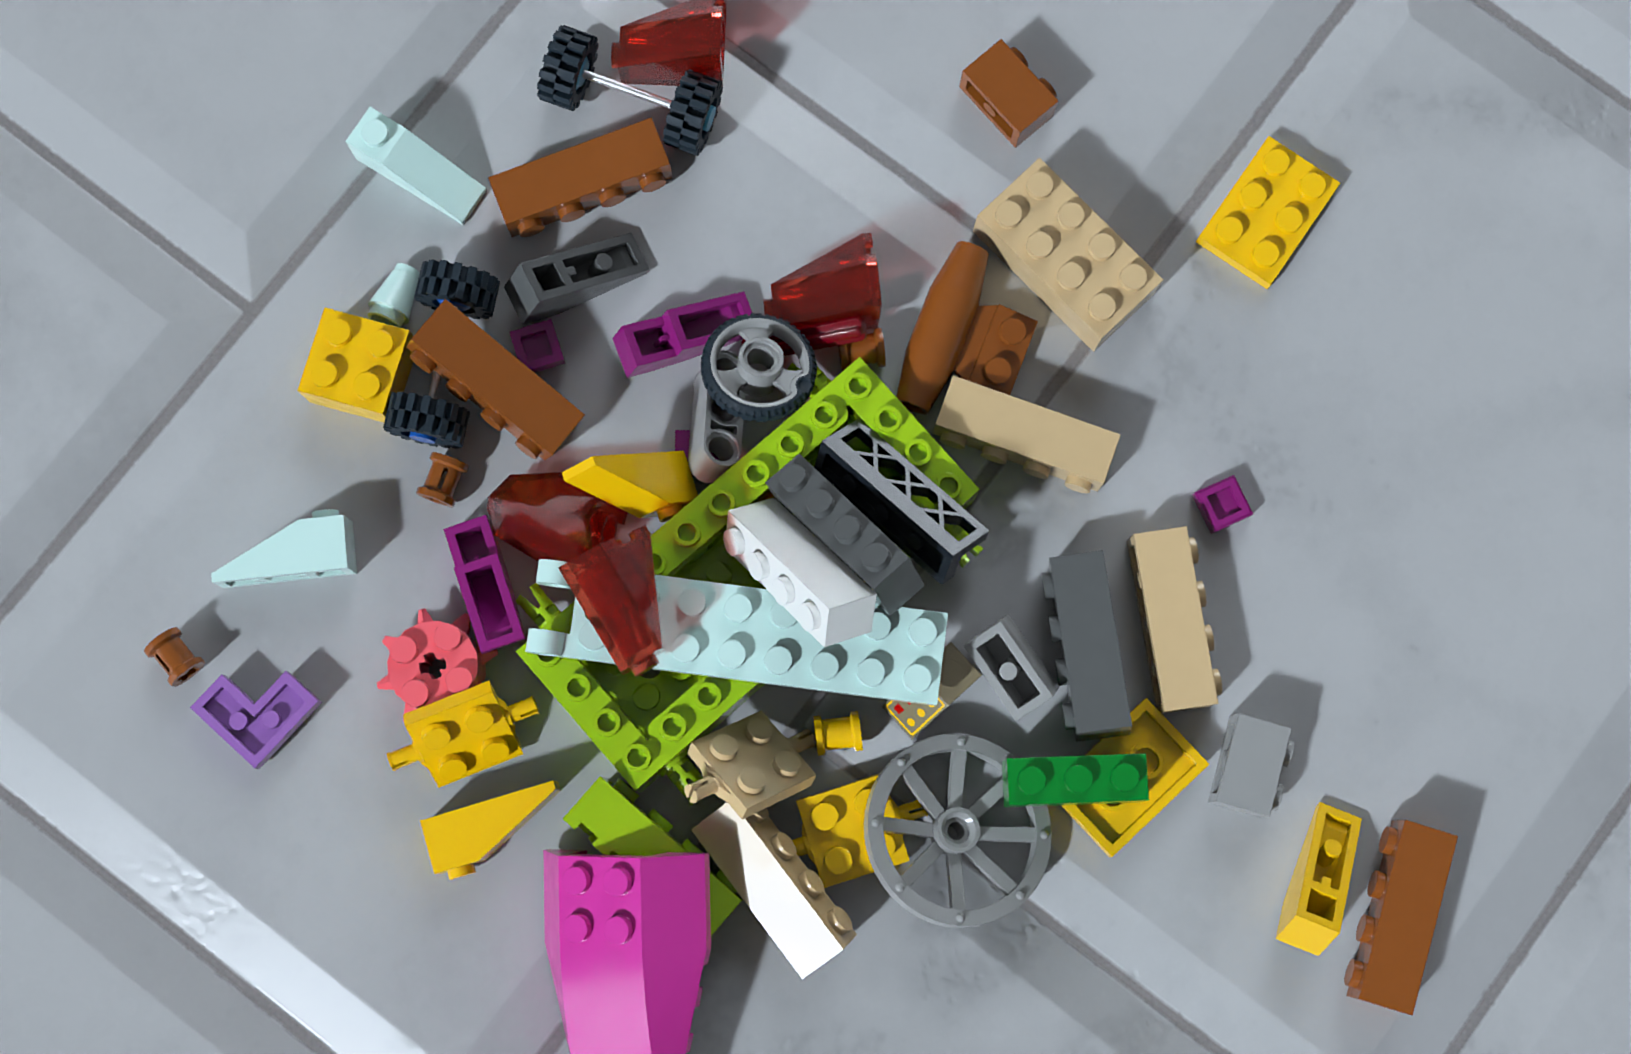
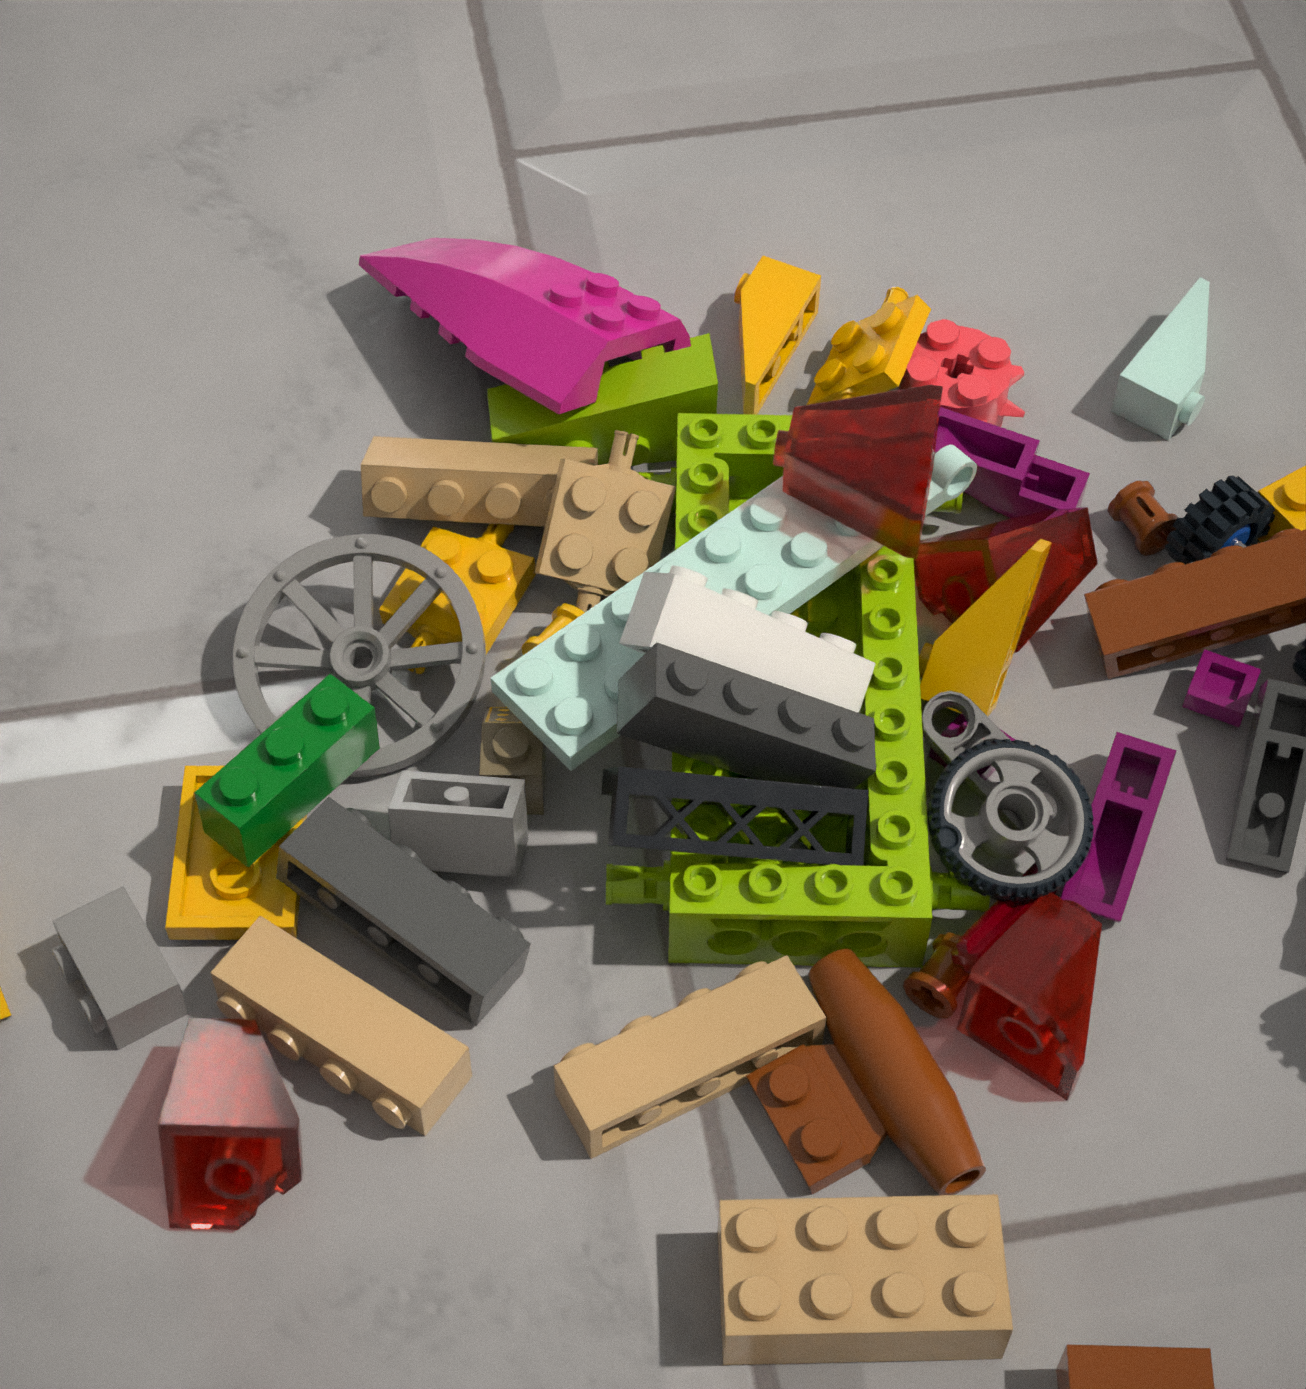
camera: 135 degrees right, 25 degrees down
(174, 656) = (1153, 231): dark orange bush -> none
(257, 727) = (1032, 245): medium lavender plate -> none
(1222, 504) = (406, 1204): magenta tile -> none
(1275, 621) = (226, 1127): none -> clear red slope

